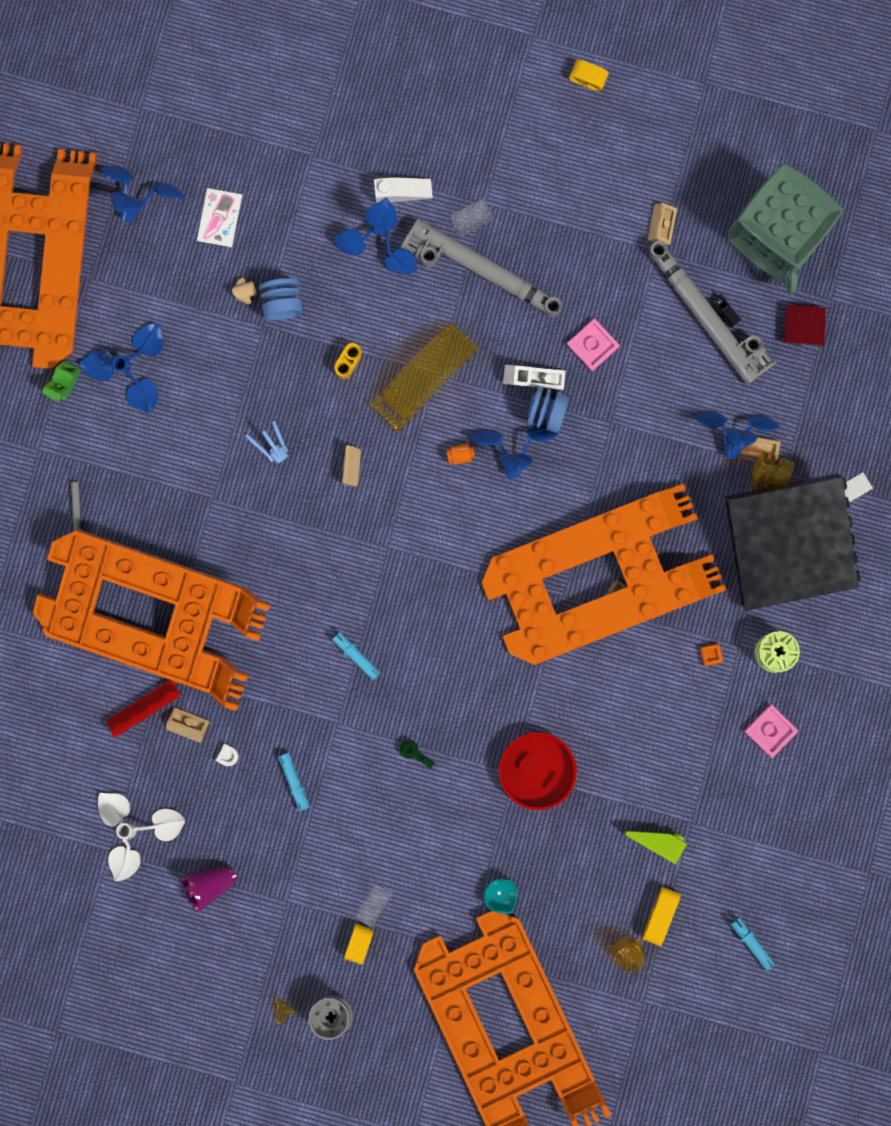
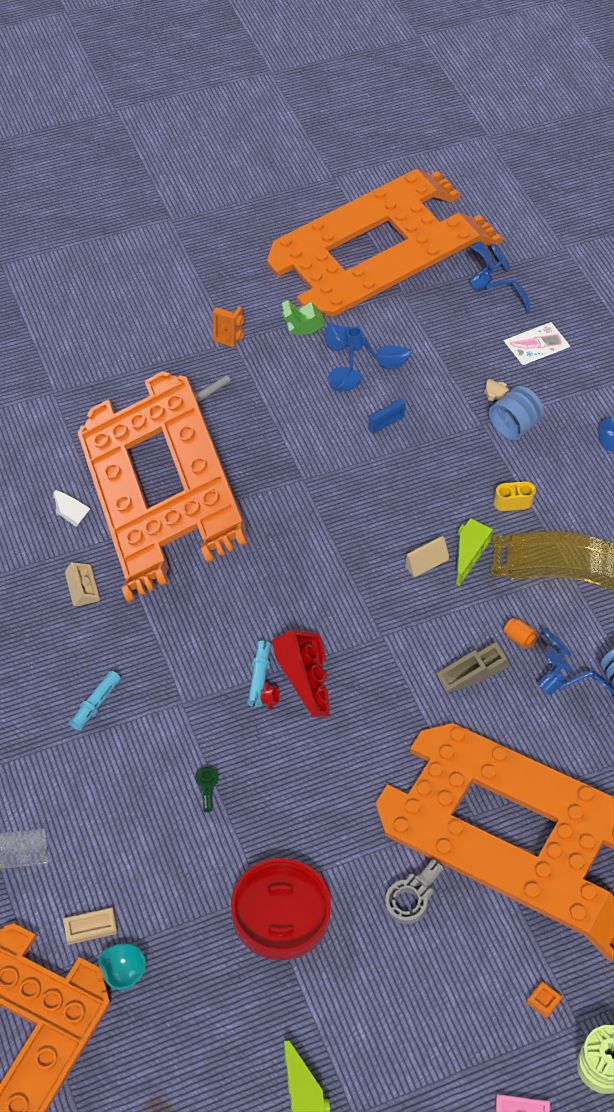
camera: 55 degrees right, 30 degrees down
(29, 451) = (228, 326): none -> orange bracket
(113, 689) = (69, 508): none -> white slope
(143, 708) = (69, 542): red fence -> none
(206, 393) = (387, 416): none -> blue tile
(228, 755) = (77, 633): white tile -> none
(278, 453) = (386, 498): light blue plant -> none
(365, 429) = (472, 543): none -> lime slope
(372, 623) = (302, 661): none -> red wedge
(380, 663) = (270, 696): none -> red plate
(457, 896) = (90, 926): none -> tan tile
(462, 509) = (474, 668): none -> dark tan slope
(585, 667) = (409, 885): none -> light grey pin

